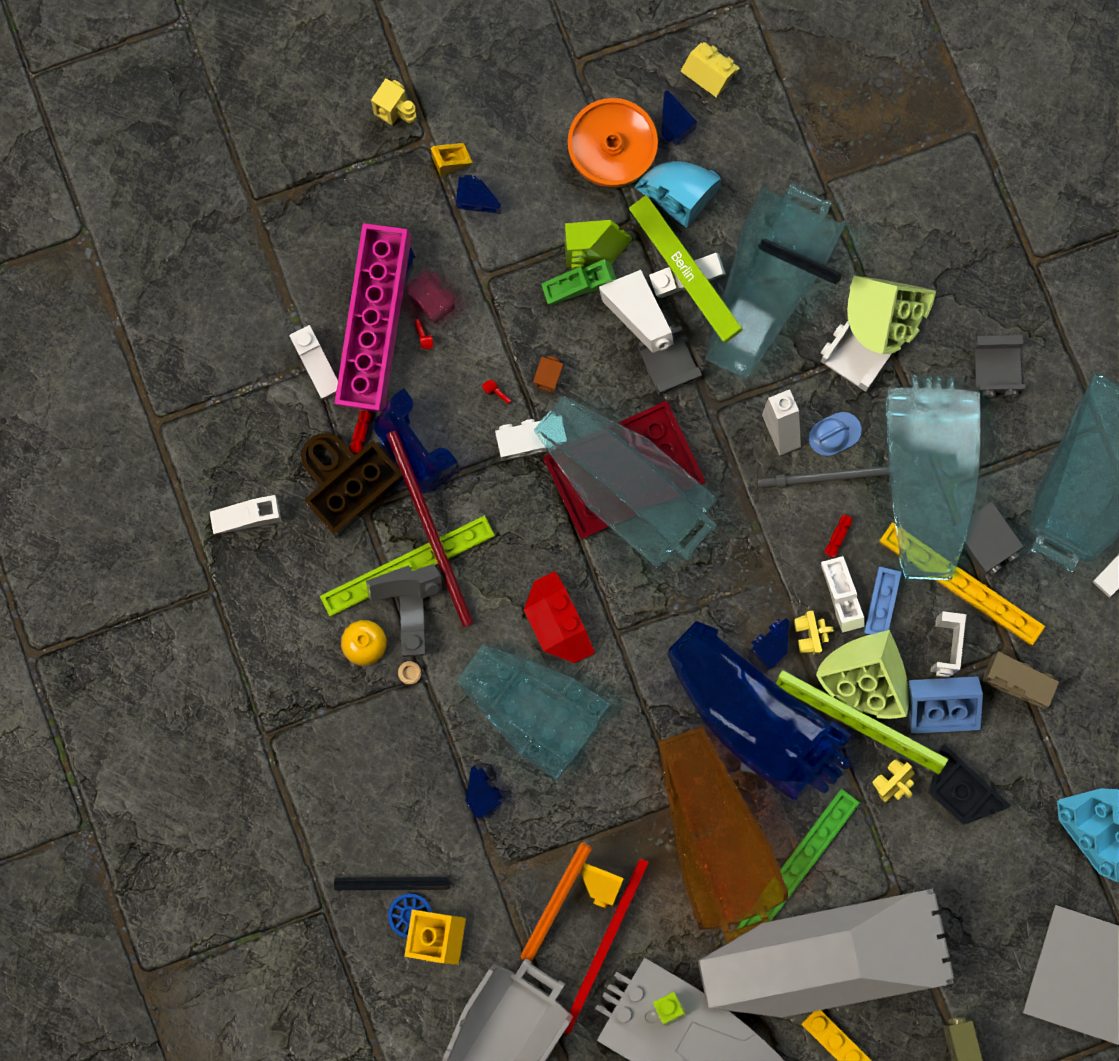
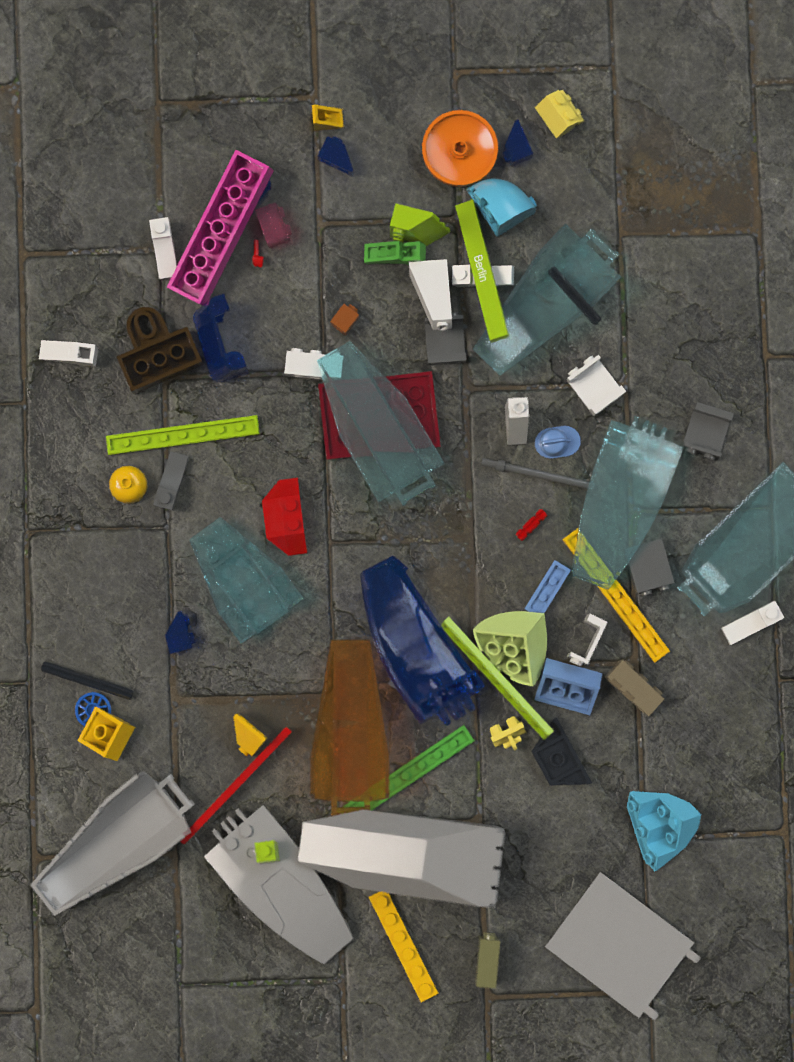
camera: 20 degrees right, 5 degrees up
(360, 432) = (181, 316): red axle -> none
(391, 103) = (293, 58): light yellow brick -> none
(405, 582) = (174, 447): dark grey slope -> none
(409, 672) = (156, 520): tan tile -> none
(429, 528) = (208, 411): dark red piece -> none
(490, 386) = (296, 313): red hand -> none
(556, 901) = (208, 738): orange axle -> none
(773, 646) = (448, 595): clear blue slope -> none
(812, 643) = (480, 603): light yellow hips -> none
(843, 594) = (518, 572): white slope -> none
(886, 312) = (631, 358): yellowish green brick -> none

